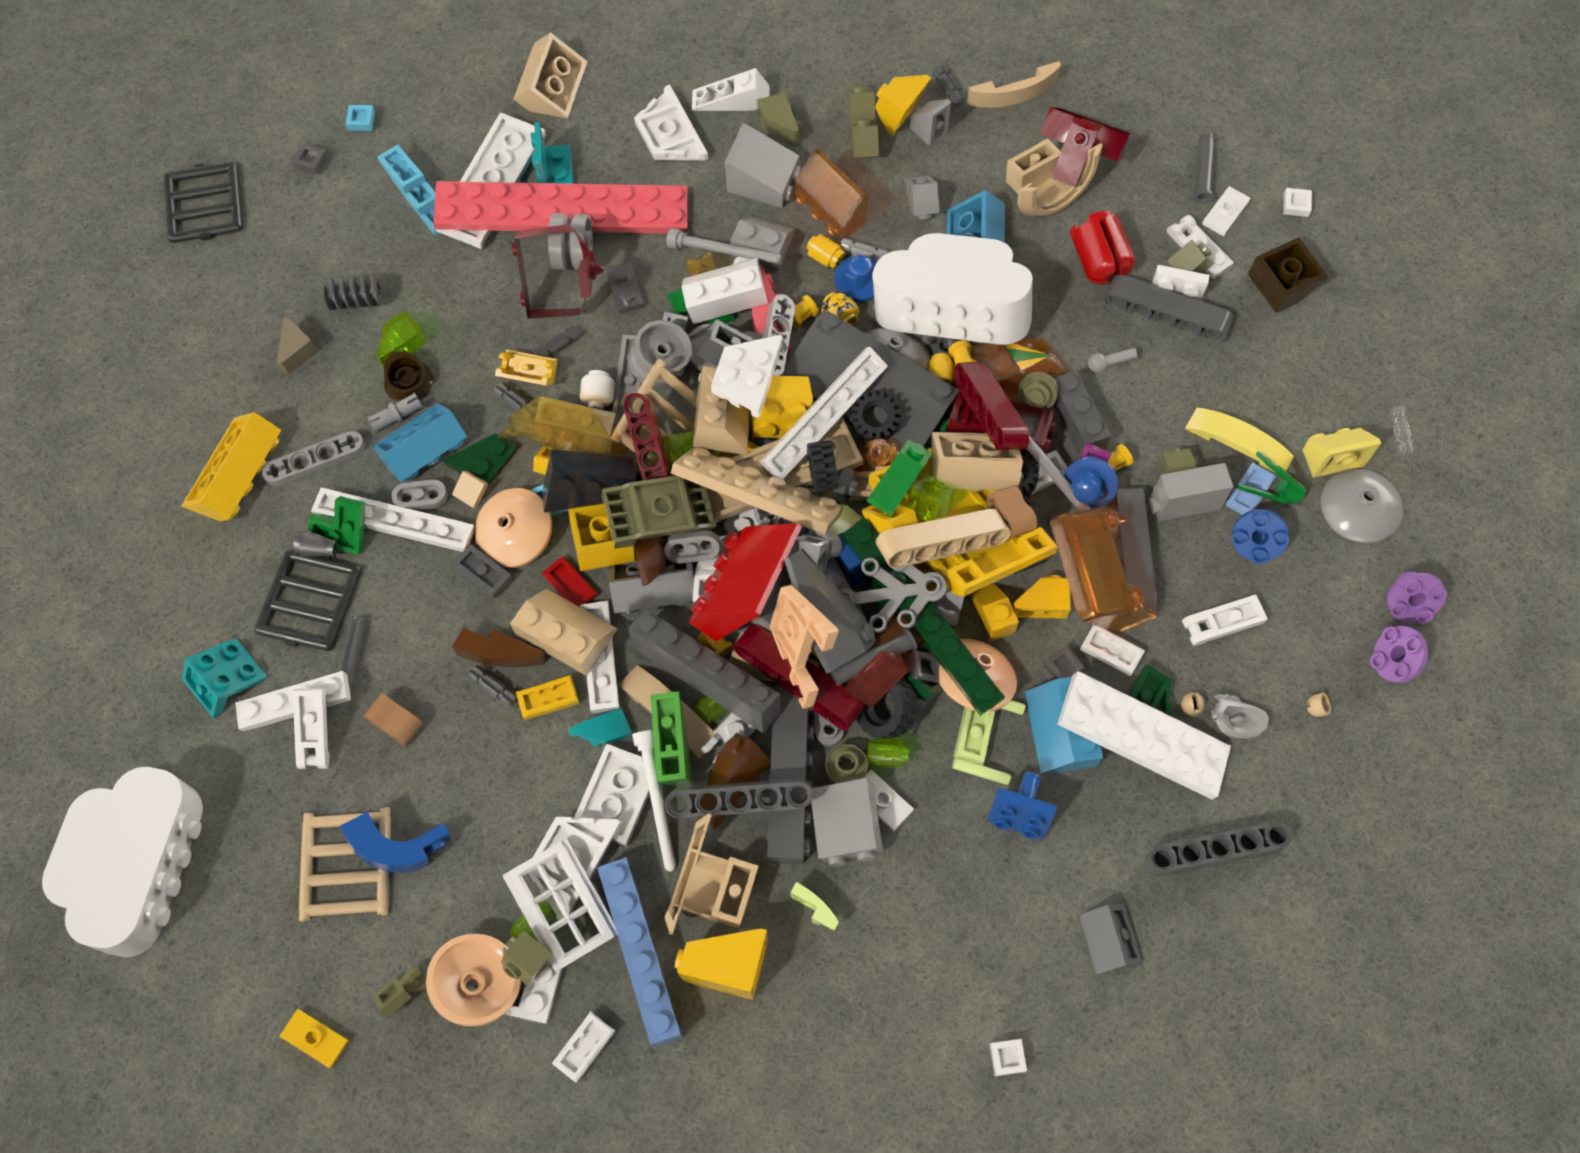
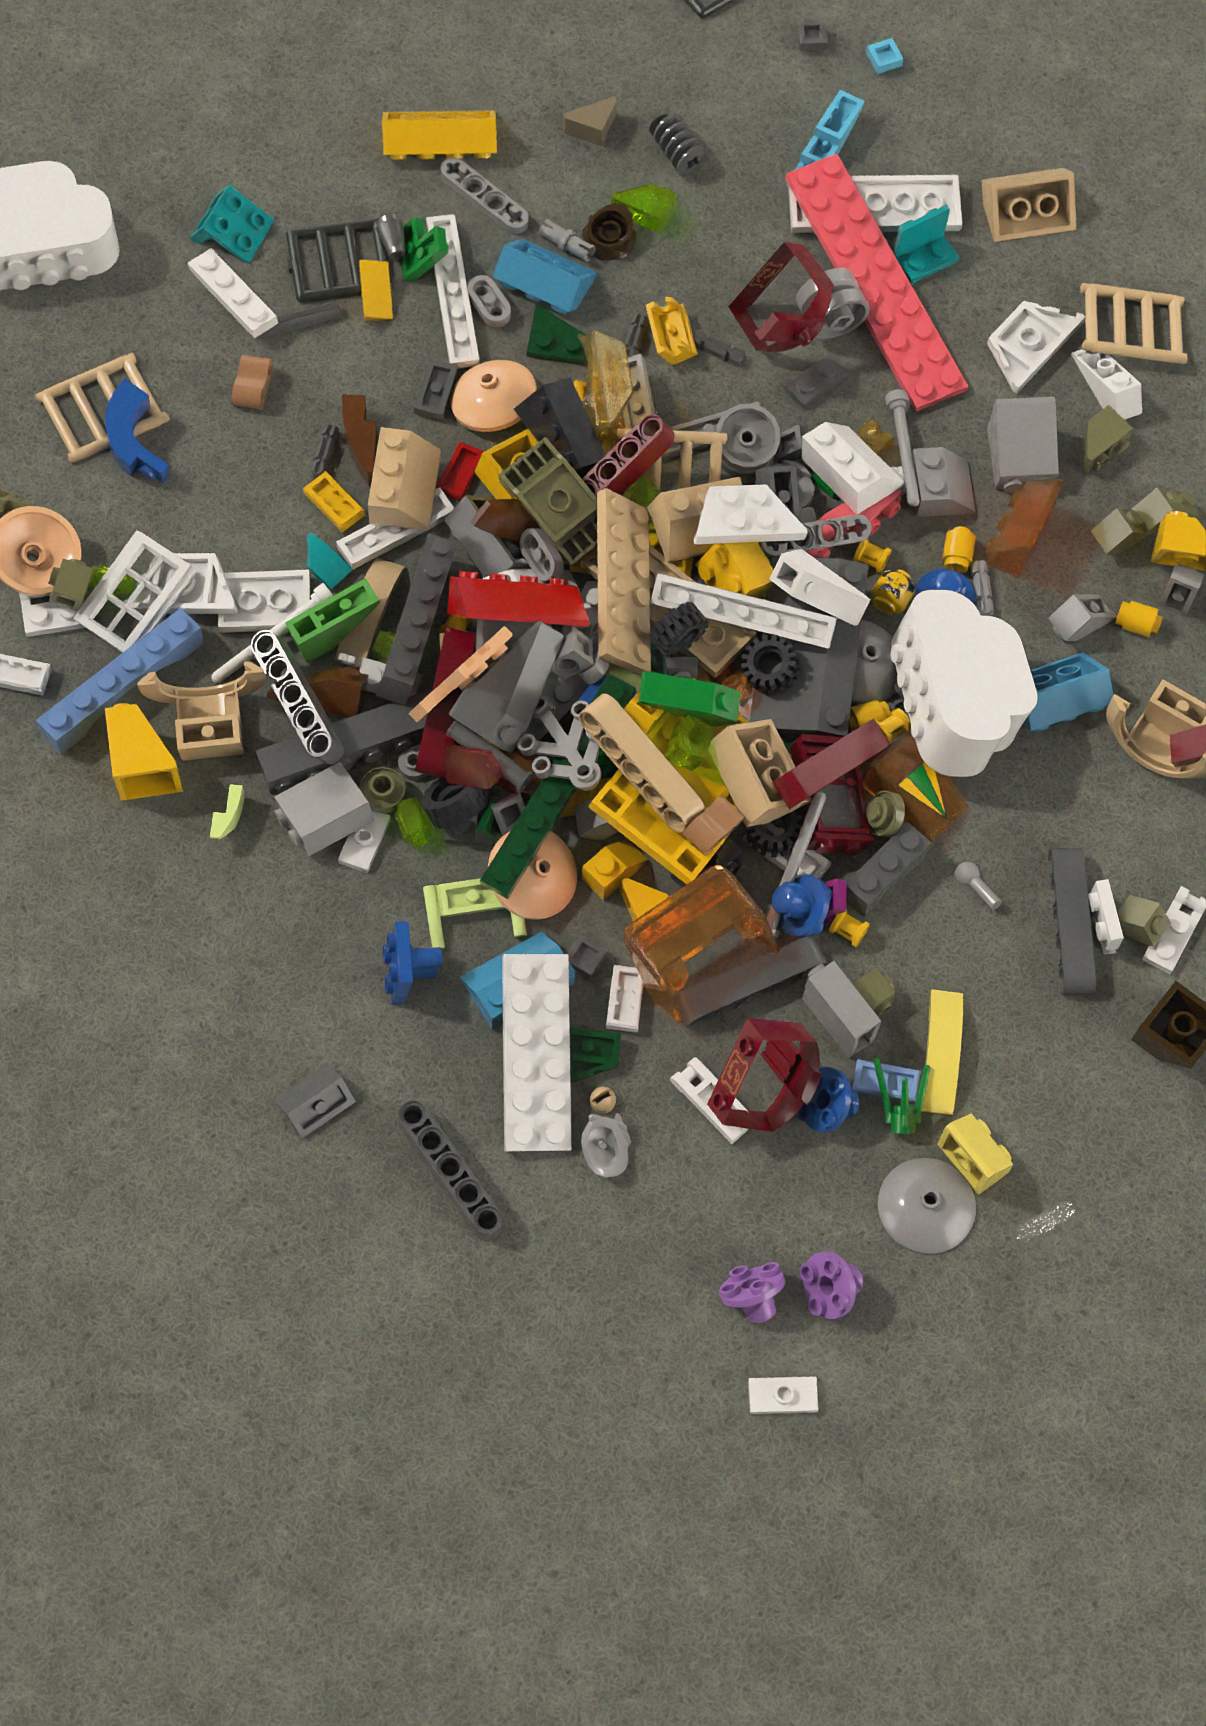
camera: 60 degrees right, 0 degrees up
(310, 728) = (210, 316): white plate -> none
(359, 581) = (375, 290): none -> yellow slope
(470, 489) = (516, 340): tan tile -> none
(597, 389) = (679, 404): white head -> none
(674, 41) = (1147, 300): none -> tan bar
(834, 347) = (819, 586): none -> white slope
(939, 160) = (1139, 618): none -> yellow brick
(1008, 1057) = (156, 1043): white plate -> none
(1102, 247) = (1109, 821): red cylinder -> none
(1242, 560) = (793, 1066): none -> dark red piece
(1319, 705) = (666, 1226): tan hinge -> none
(1487, 671) = (783, 1395): none -> white plate

